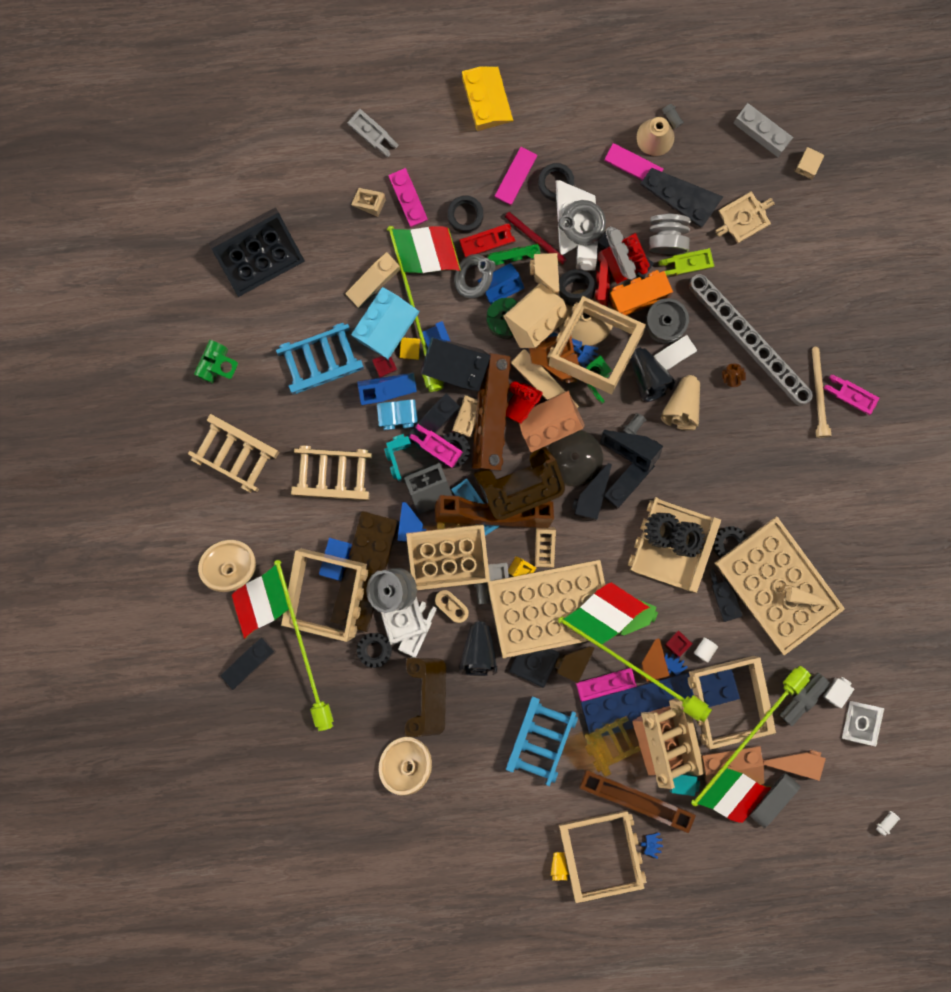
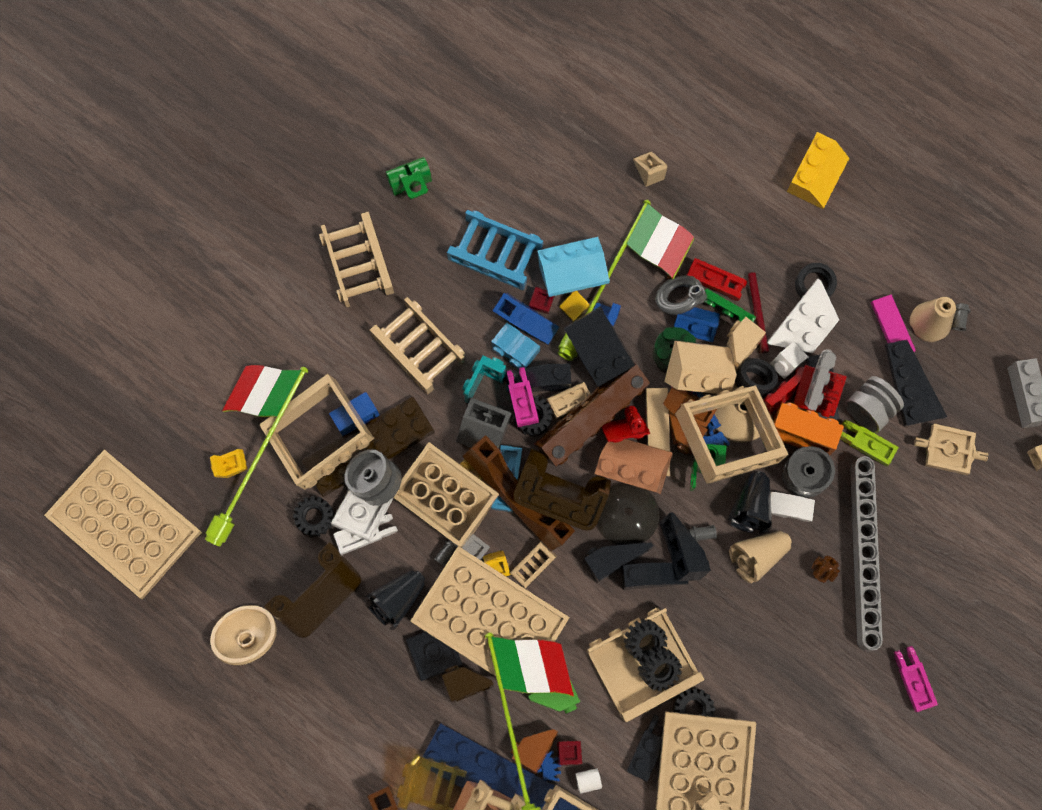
camera: 40 degrees right, 10 degrees down
(223, 558) = (264, 338): tan dish -> none
(248, 663) = (206, 431): black slope -> none
(255, 771) = (123, 524): none -> tan plate
(256, 252) = (524, 128): black slope -> none
(285, 669) = (228, 464): none -> yellow bracket
(371, 132) = (701, 118): light grey hinge -> none
(373, 279) = (604, 226): tan slope -> none
(408, 198) = (683, 192): dark pink plate -> none
(408, 523) = (441, 438): blue slope -> none
(451, 607) = (410, 541): tan plate -> none
(465, 199) = (722, 229): black tyre -> none
(516, 176) = (786, 251): dark pink tile -> none
(530, 726) = (357, 711): dark azure fence -> none
(572, 233) = (794, 338): dark grey piece -> none
(606, 684) = (475, 729): dark pink tile -> none
(823, 428) = (863, 686): tan piece -> none

